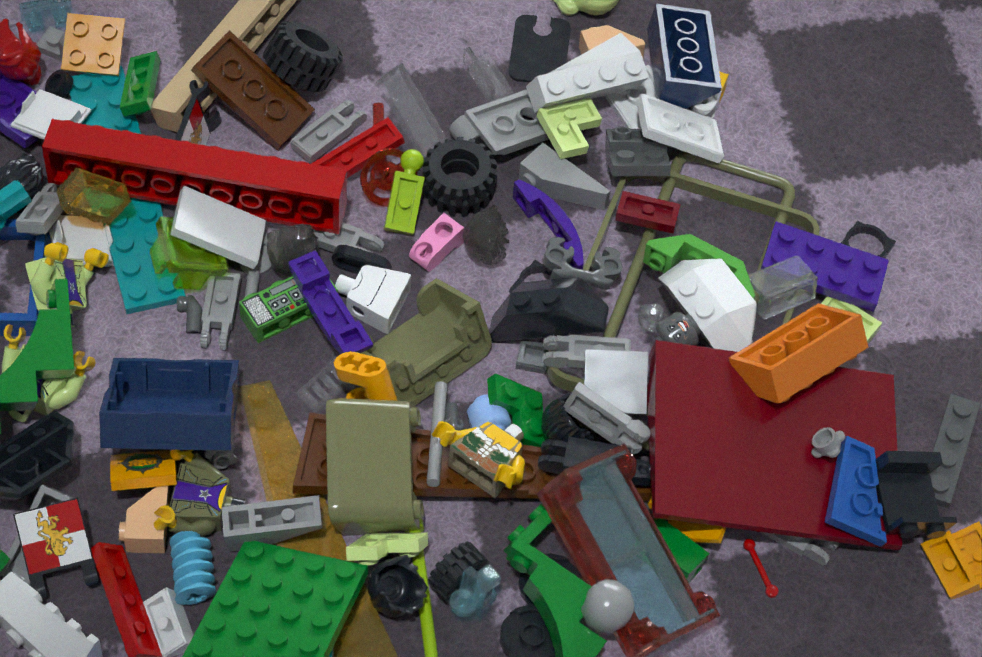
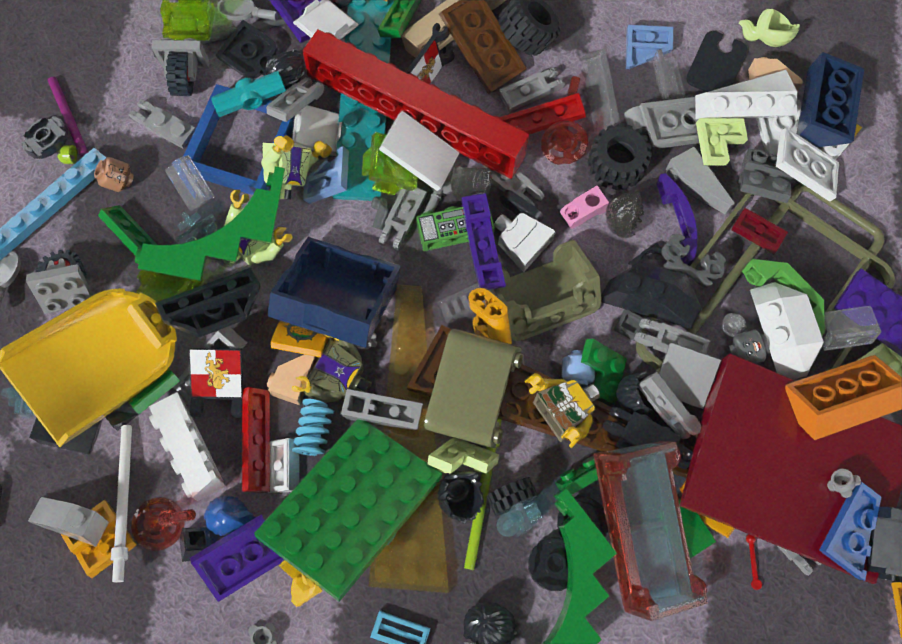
camera: 20 degrees right, 15 degrees up
(93, 196) = (332, 100): clear yellow brick -> none
(114, 289) = (328, 178): none -> medium blue wing
(405, 195) = (572, 160): lime plate -> none
(435, 449) = (534, 368): light grey bar -> none
(446, 46) = (644, 41): none -> medium blue wing
(452, 416) = (547, 365): dark grey arm -> none
(608, 606) = (619, 570): light grey hair -> none

